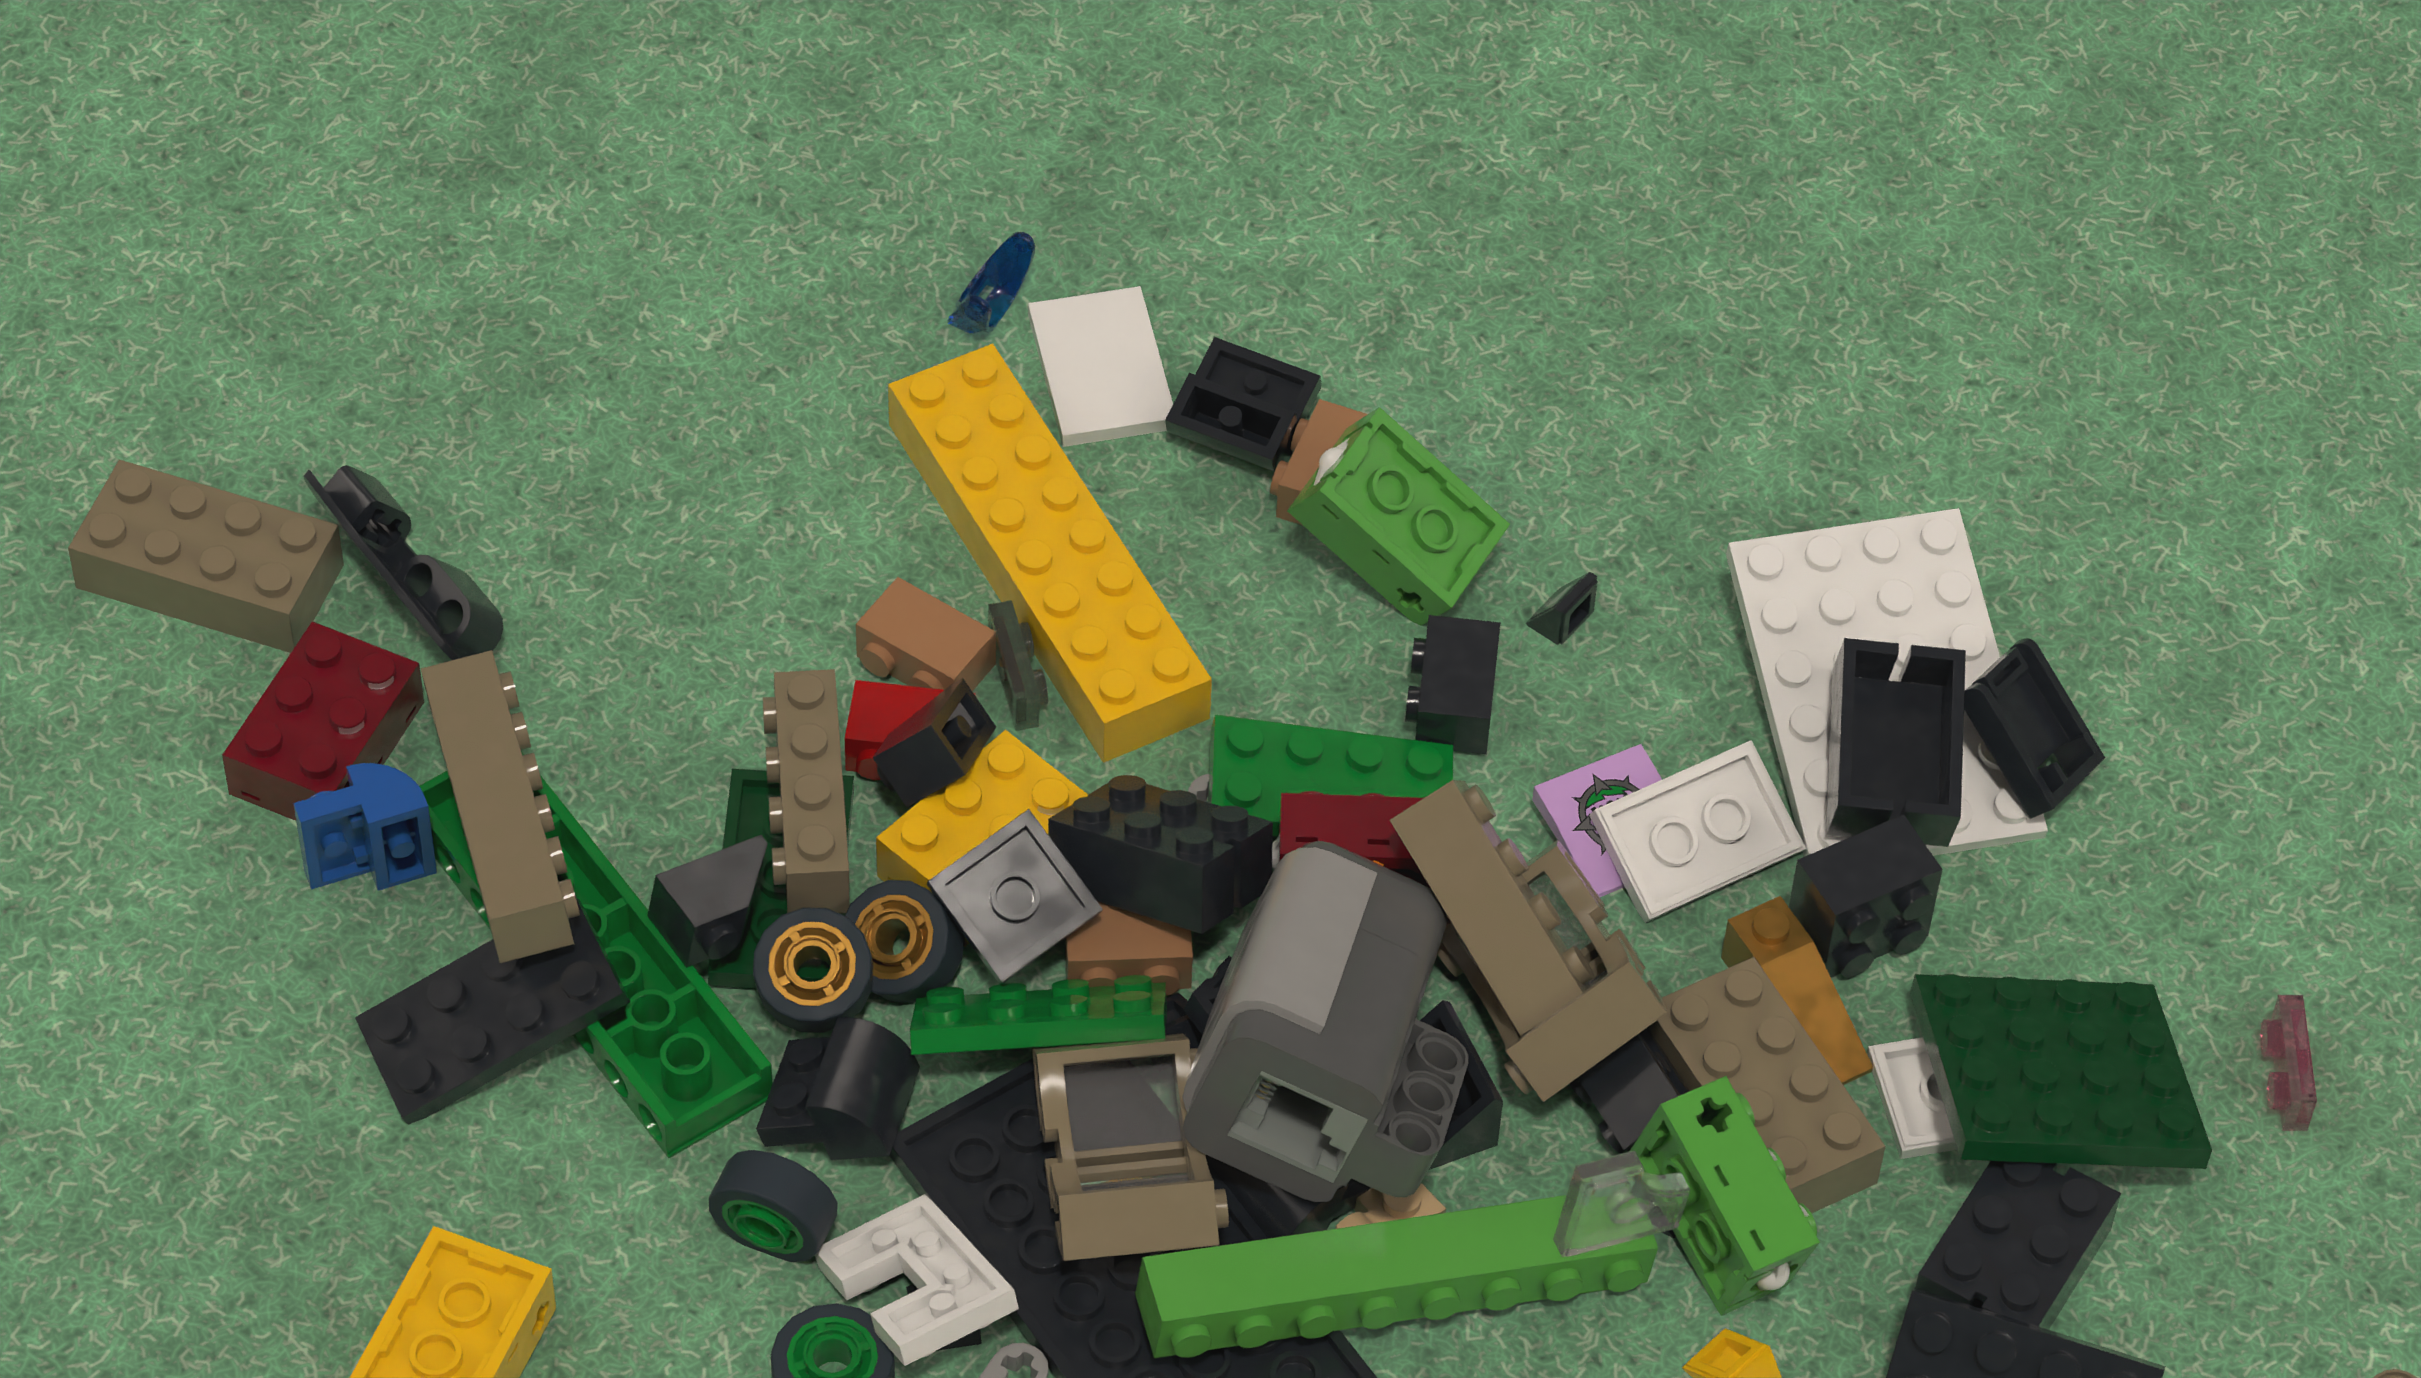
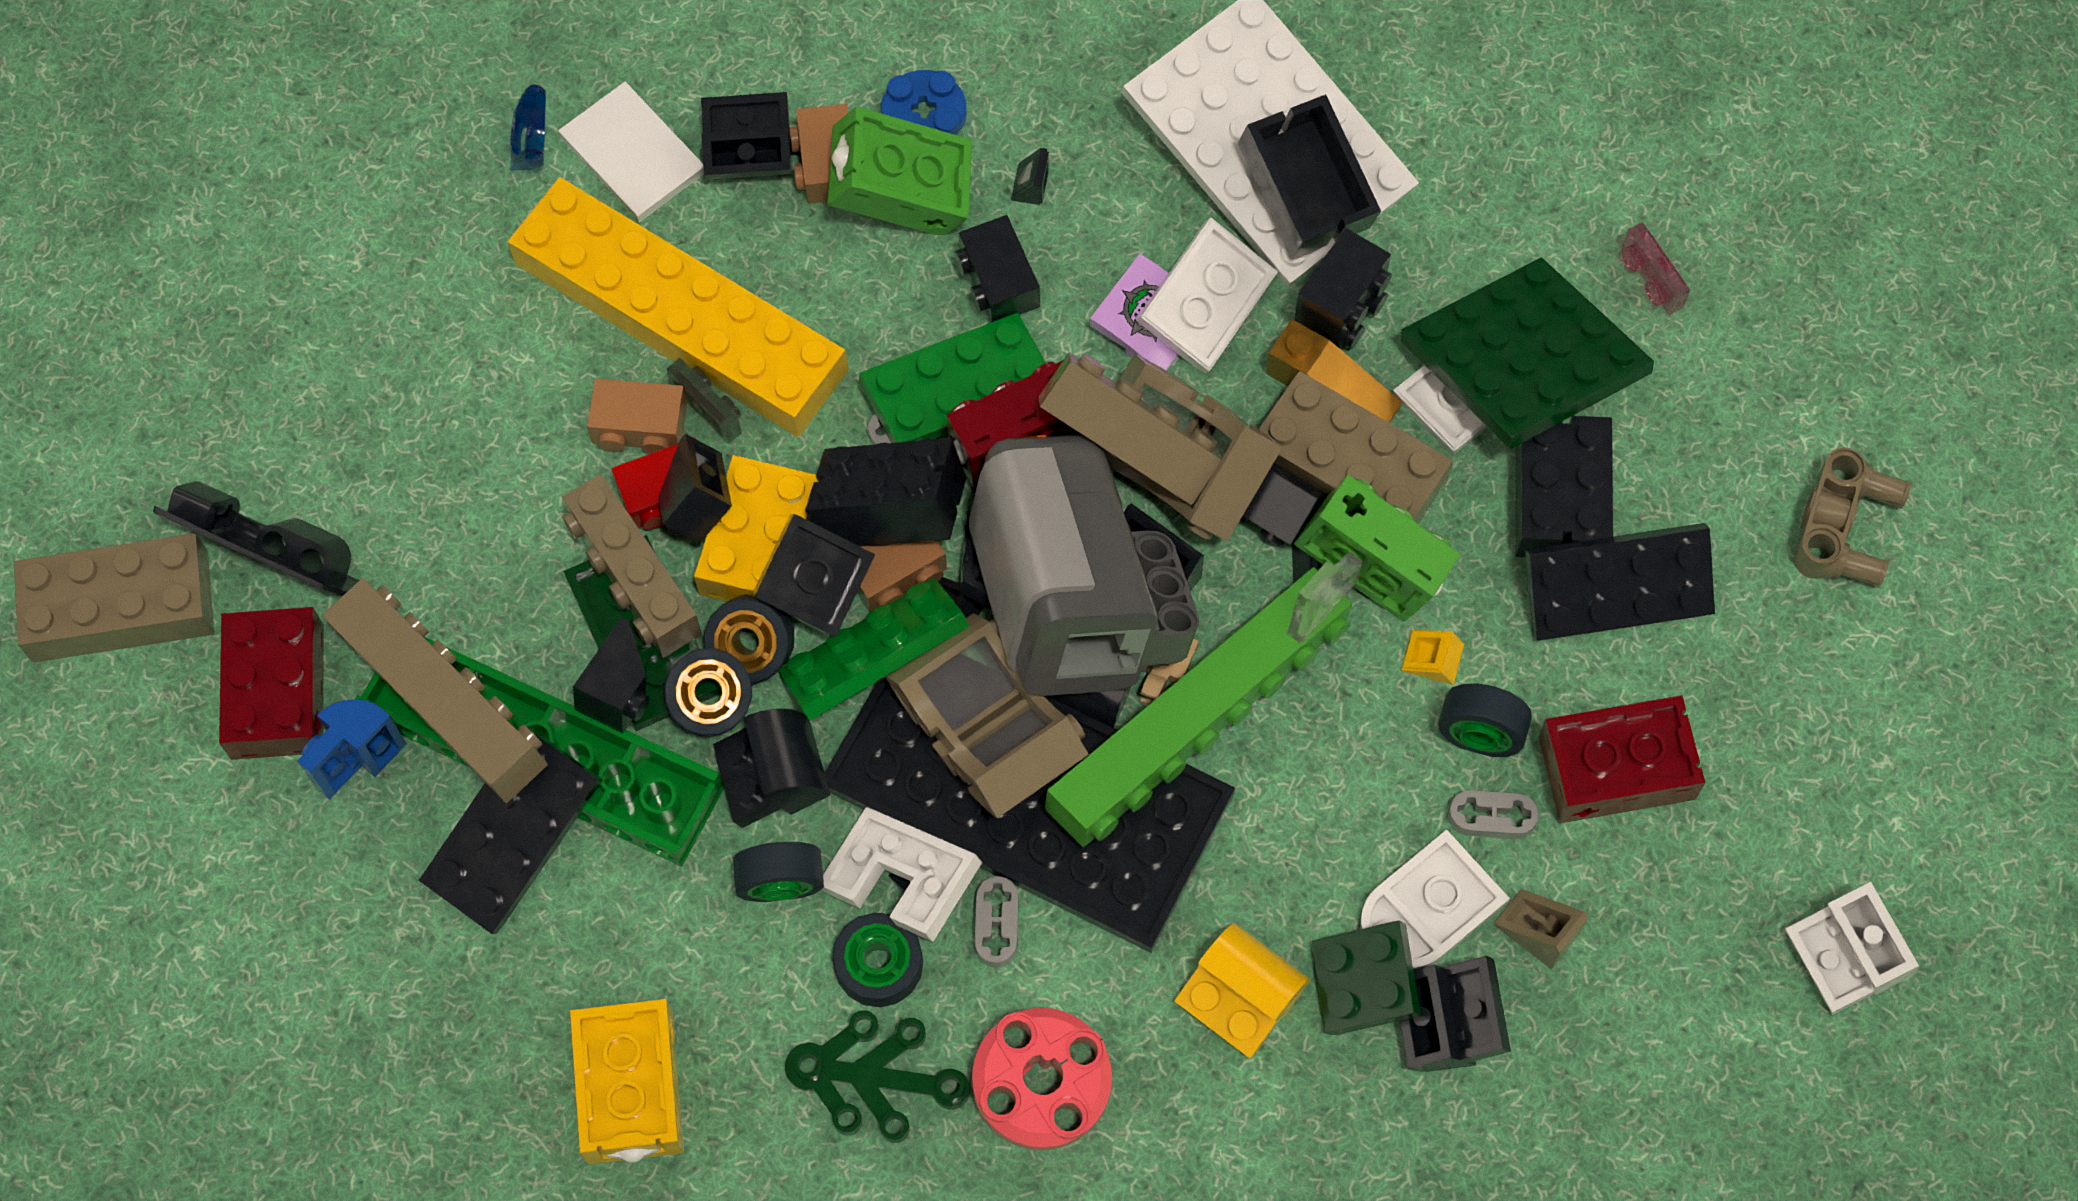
camera: 25 degrees left, 15 degrees up
(1502, 454) = (928, 86): none -> blue plate
(2027, 718) = (1372, 115): black container -> none

